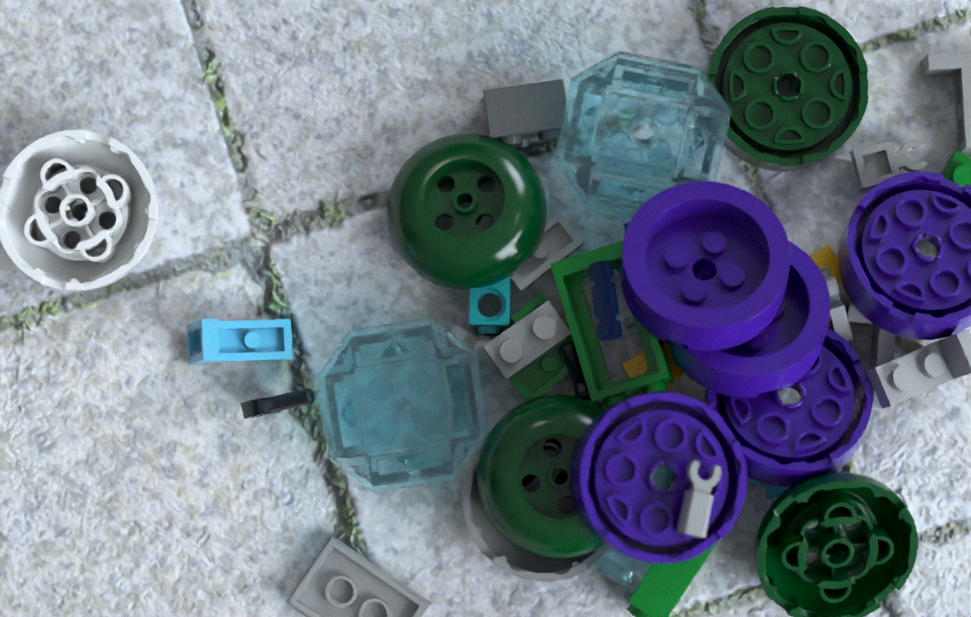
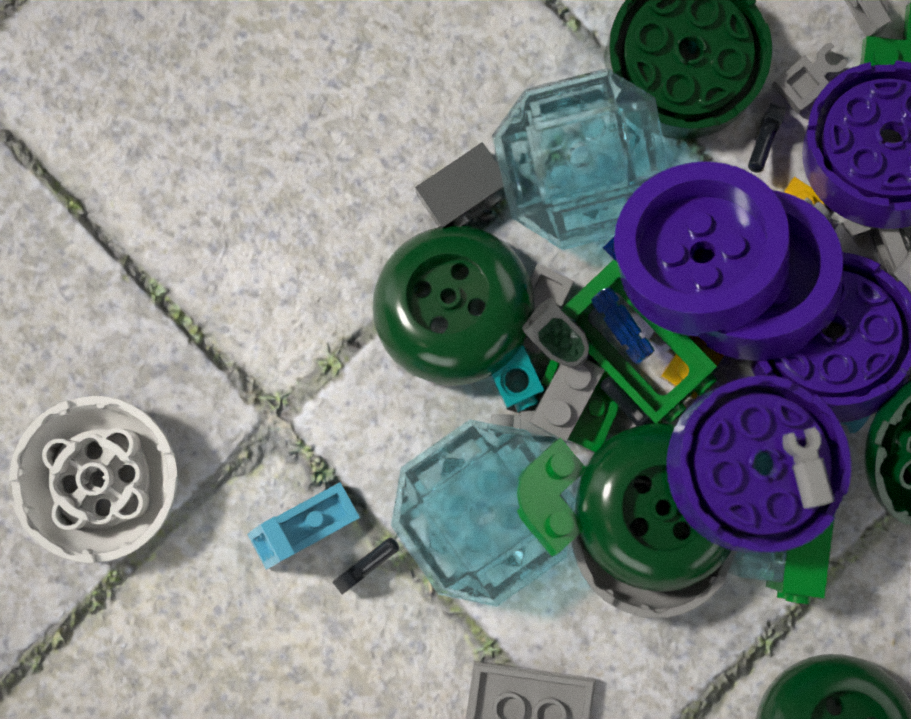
camera: 30 degrees left, 0 degrees up
(456, 415) = (540, 498): none -> green plate
(543, 281) = (557, 334): none -> rock
(818, 197) = (765, 136): none -> black bar

